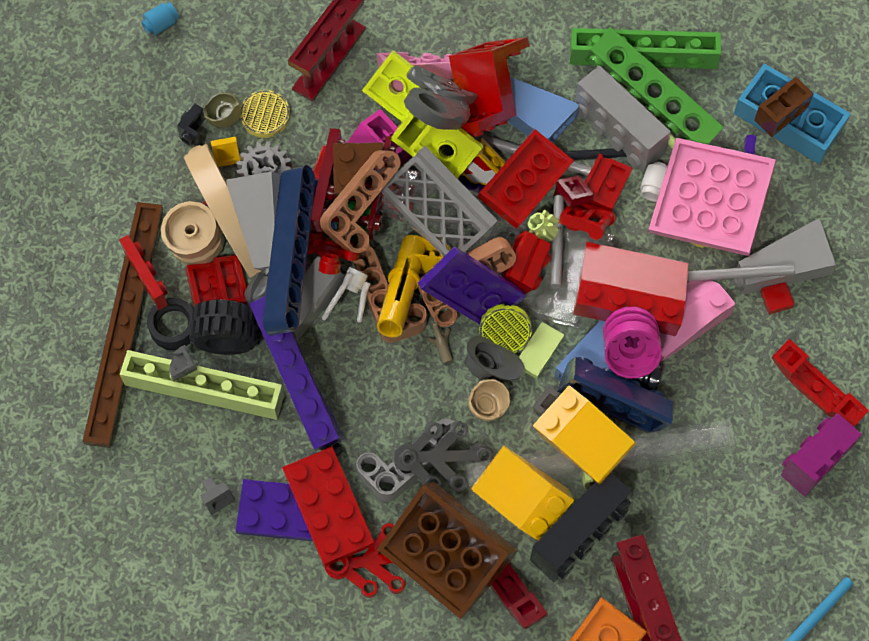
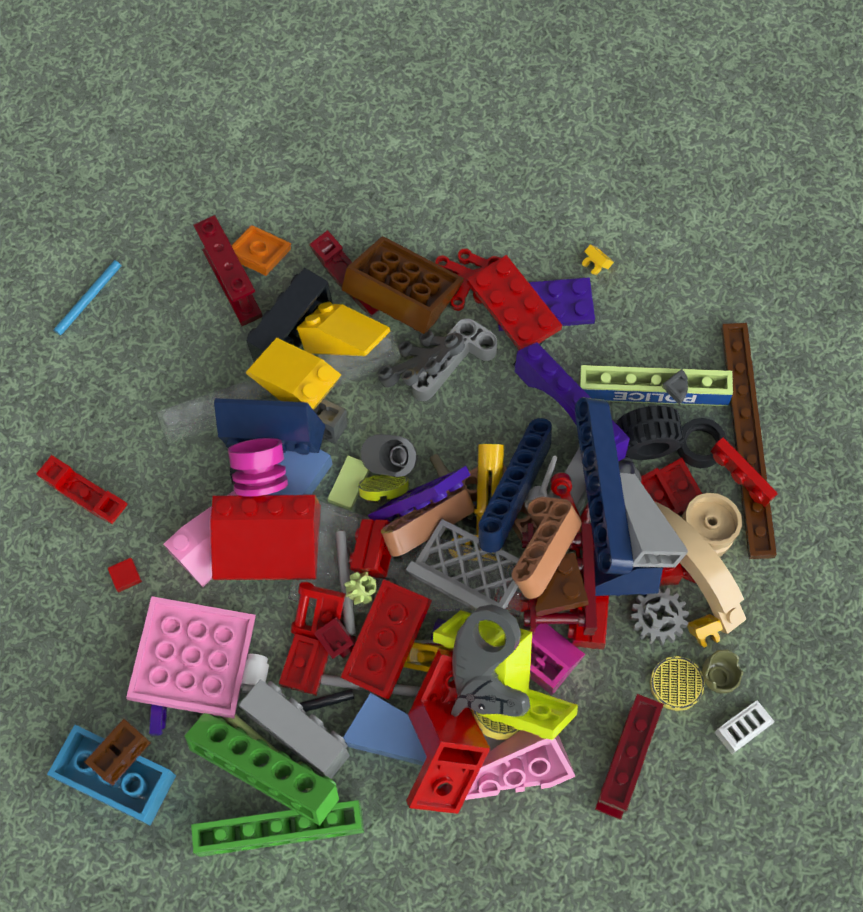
camera: 175 degrees right, 0 degrees up
(159, 18) = (826, 775): dark azure brick -> none
(188, 125) = (752, 655): black bracket -> none
(216, 496) = (615, 300): dark grey tile -> none
(219, 551) = (599, 259): none -> yellow tile
(228, 72) = (729, 741): none -> white slope
(361, 296) = (515, 485): none -> dark blue beam
(488, 400) = (389, 420): tan hair -> none
(735, 273) = (158, 576): light grey bar -> none
(804, 248) = (113, 610): light grey slope -> none
(819, 453) = (81, 424): magenta wedge -> none

